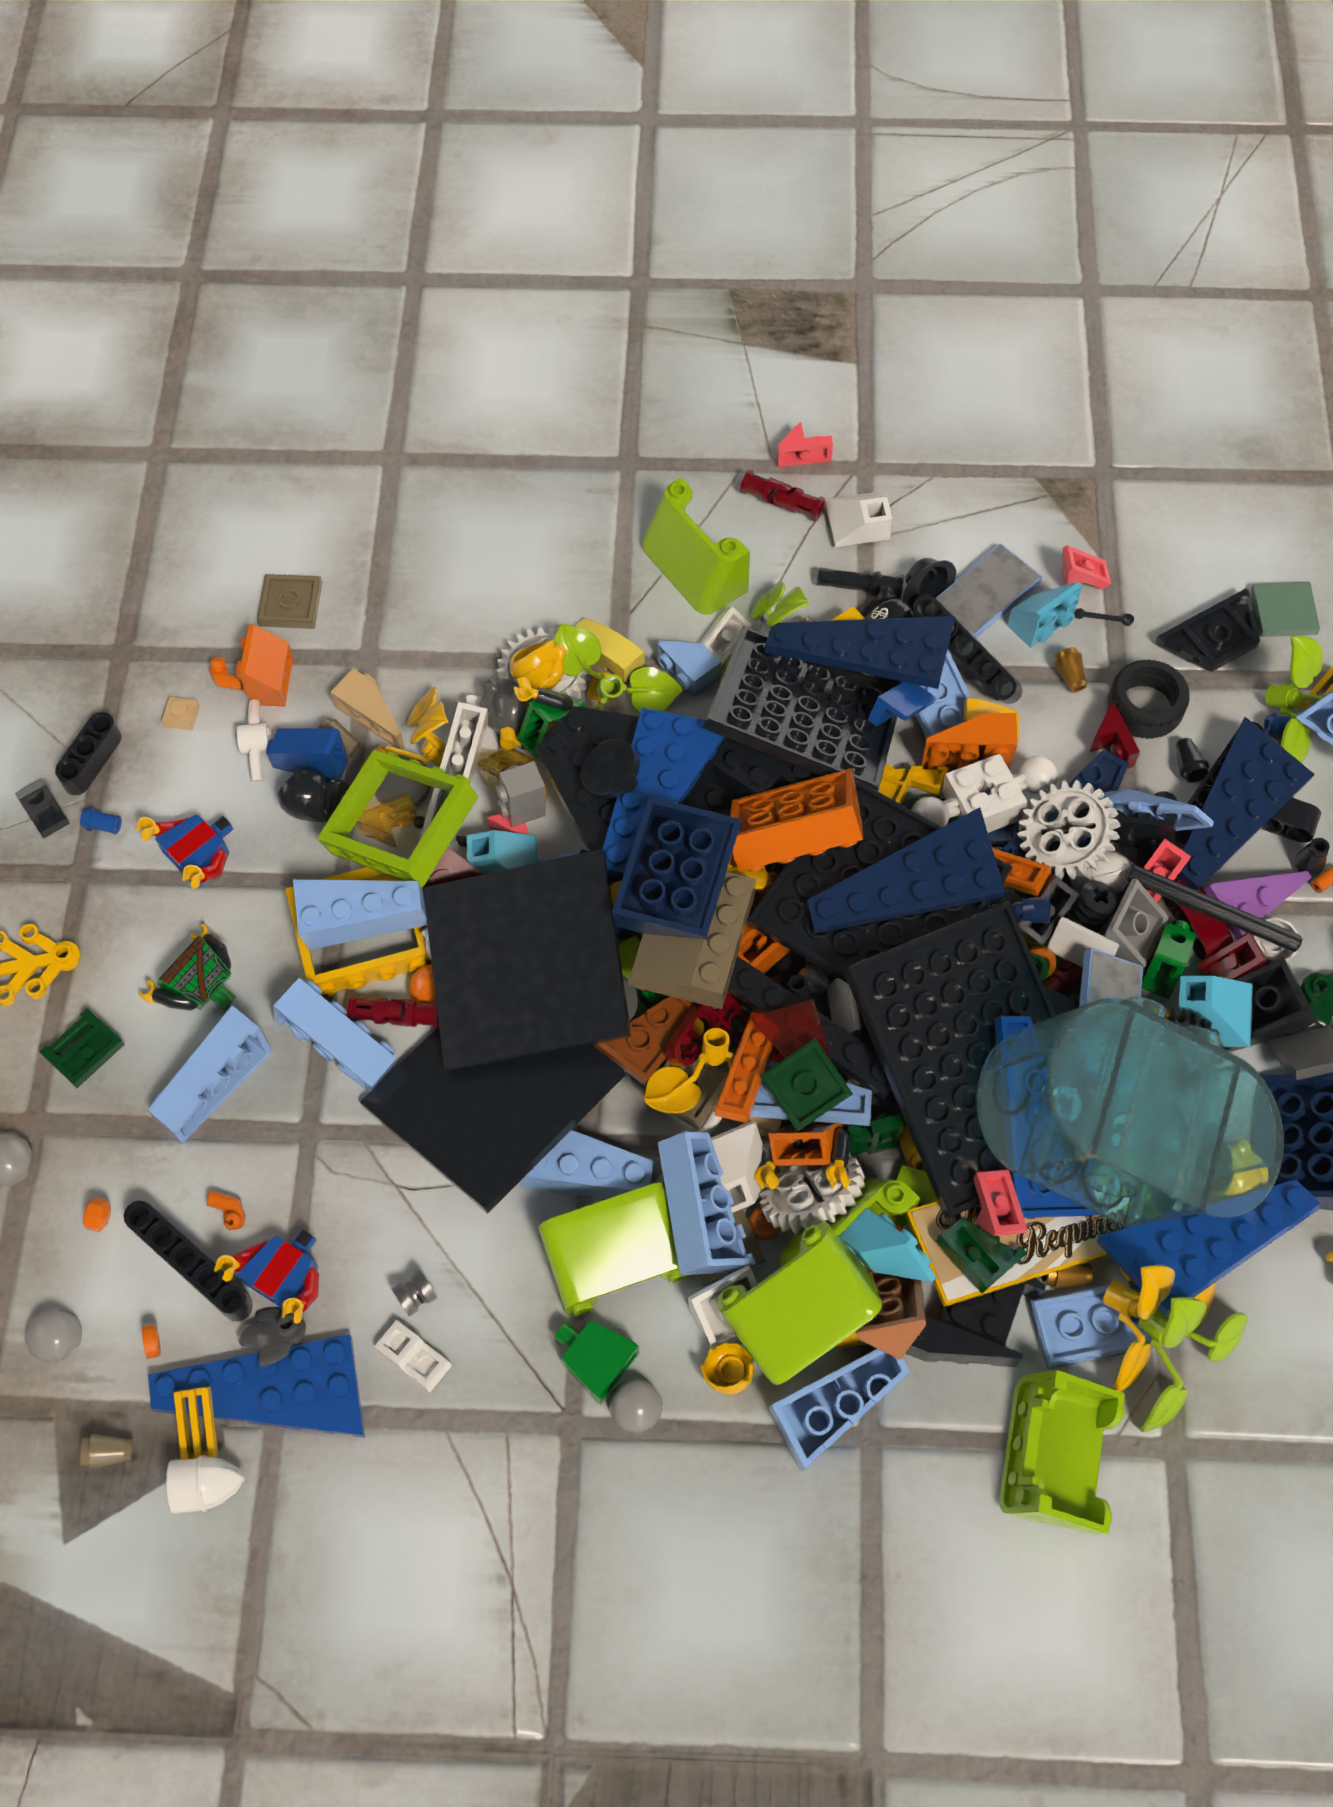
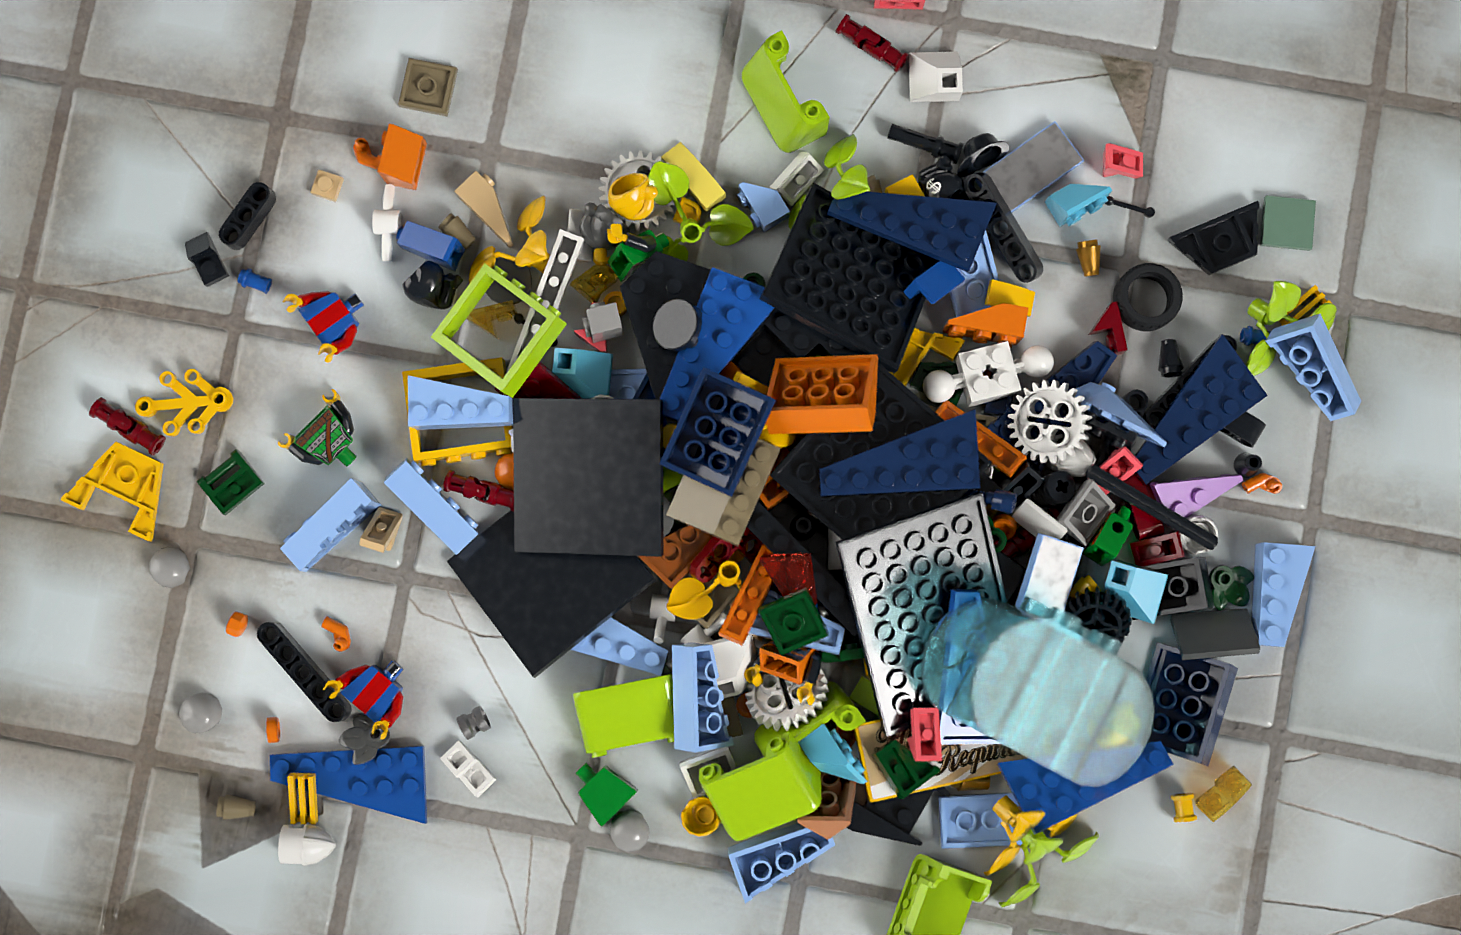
camera: 10 degrees right, 20 degrees up
(275, 1077) = (381, 530): none -> tan slope
(638, 1118) = (659, 611): none -> white piece

